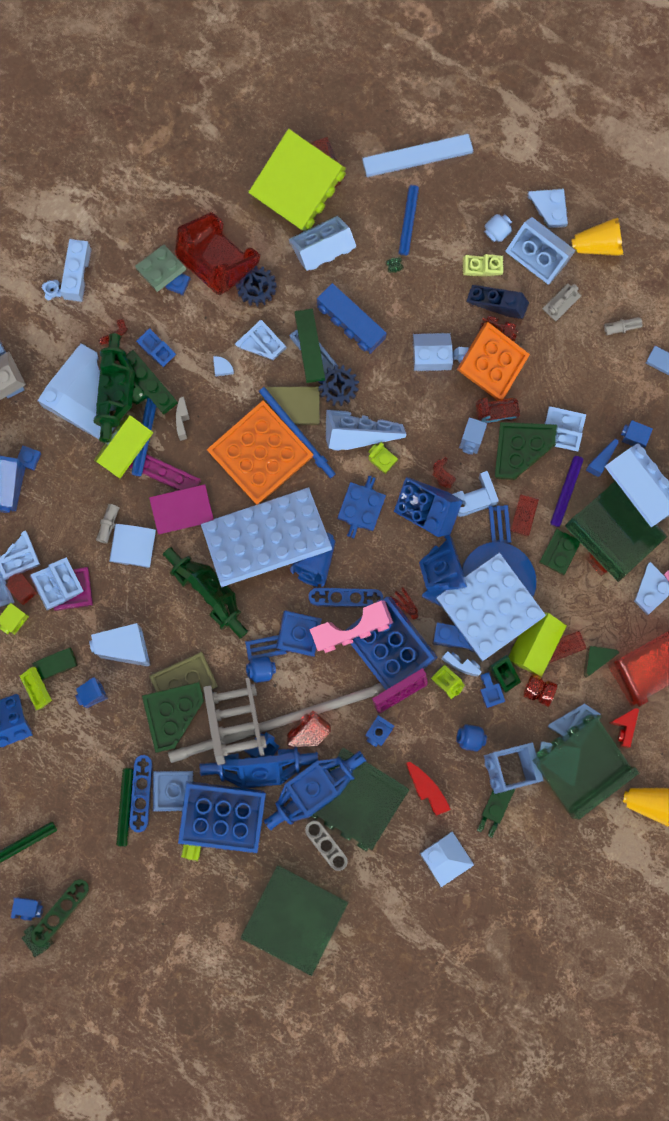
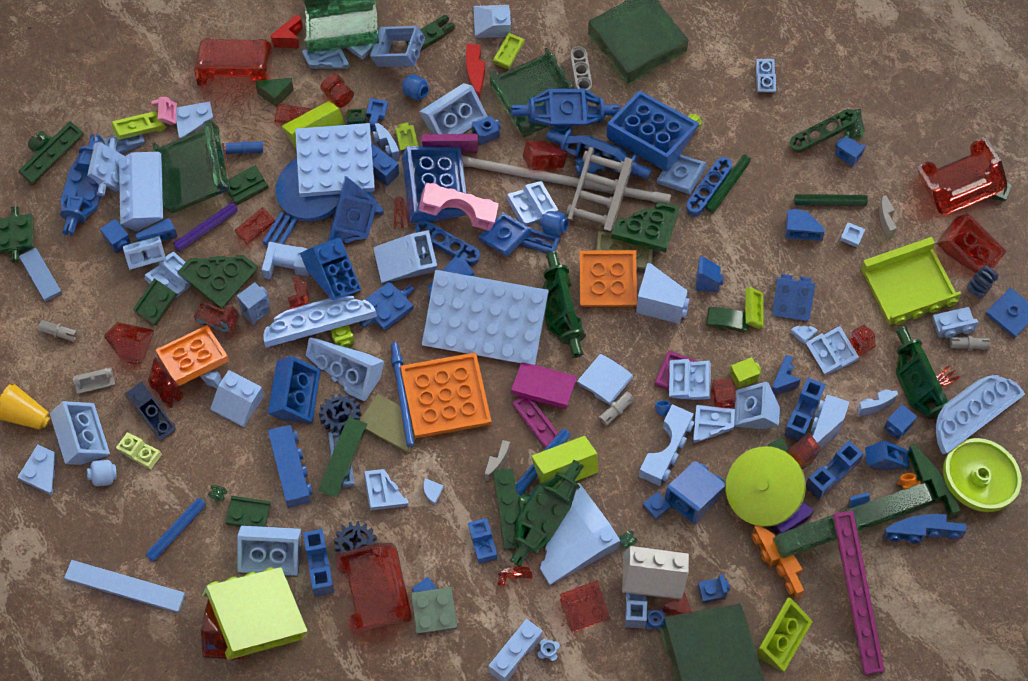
camera: 150 degrees left, 15 degrees down
(33, 798) = (802, 226): none -> blue slope
(35, 412) = (628, 539): none -> clear green bush
(41, 339) = (584, 606): none -> clear red hinge
(44, 489) = (657, 464): none -> light blue arch
(68, 547) = (662, 407): none -> blue hinge
(149, 950) = (765, 75): none -> light blue slope
(180, 640) = (608, 278): none -> orange plate
(281, 259) = (318, 562): none -> blue arch
(293, 681) = (531, 203): none -> light blue slope
(360, 265) = (247, 512): none -> dark green plate
(370, 557) = (405, 257): none -> light blue slope
(389, 384) = (294, 390): none -> blue slope
(409, 831) = (508, 51): none -> lime plate
(412, 456) = (317, 318): none -> light blue plate
(419, 731) = (454, 111): none -> light blue slope
(557, 349) = (129, 341): none -> clear red slope
(559, 395) = (155, 301): none -> dark green plate
(585, 586) = (244, 147): none -> blue pin
(599, 431) = (144, 252): none -> light blue brick

